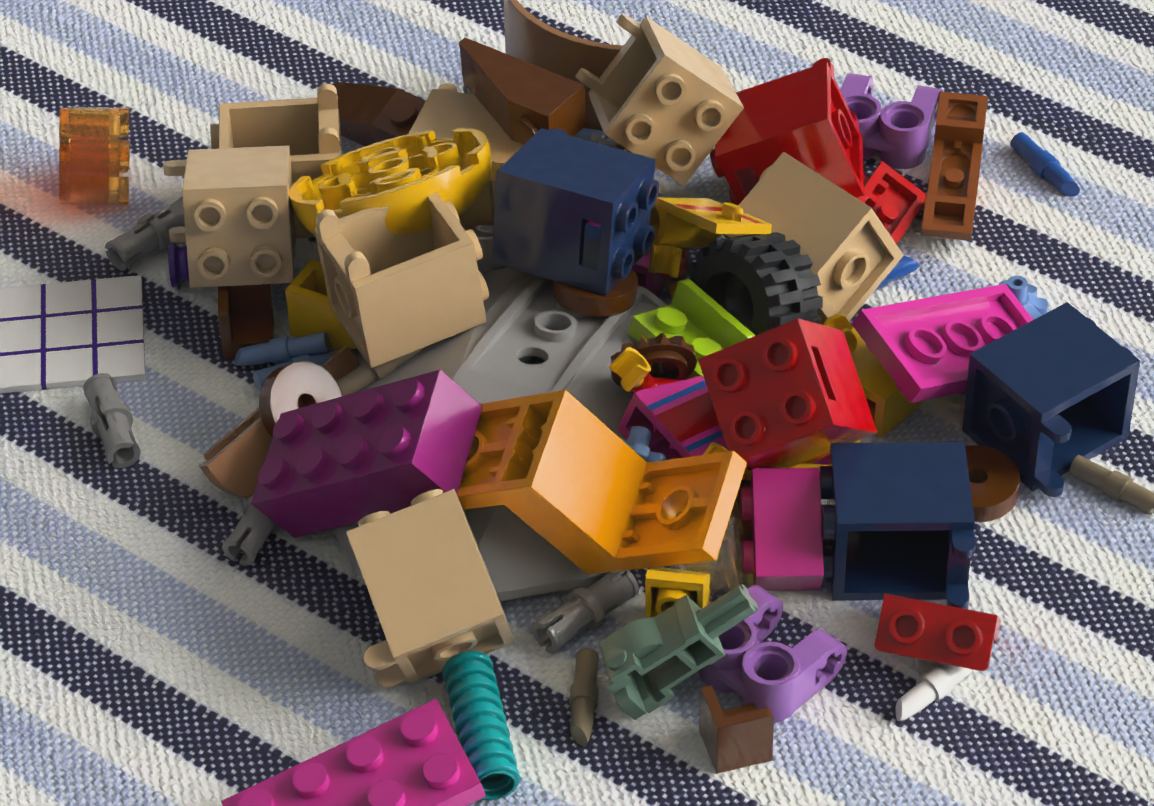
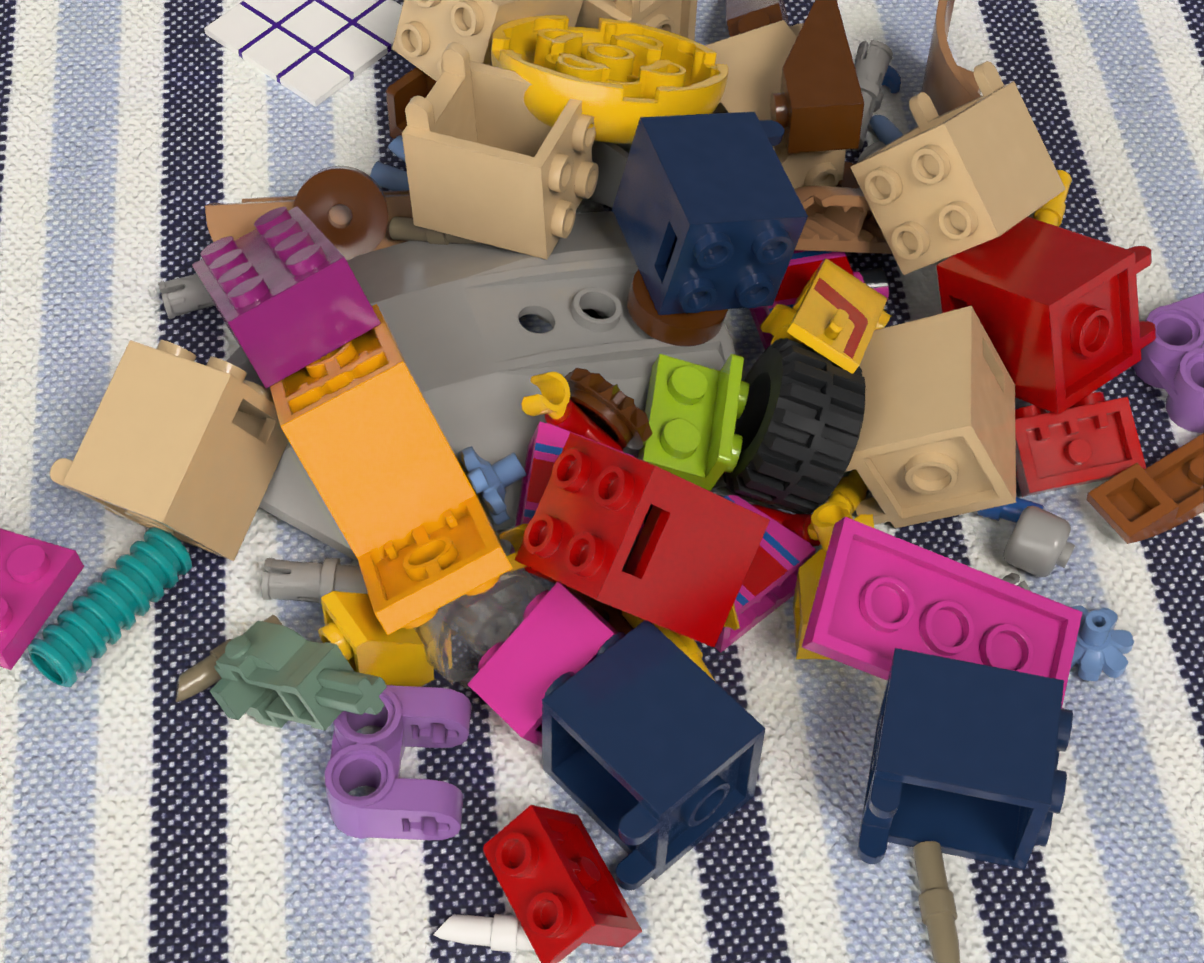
camera: 45 degrees right, 10 degrees up
(111, 420) = (234, 118): light grey pin -> none
(736, 734) = (275, 804): reddish brown panel -> none
(928, 273) = (1039, 542): none -> light grey piece
(992, 481) = (802, 806): reddish brown piece -> none

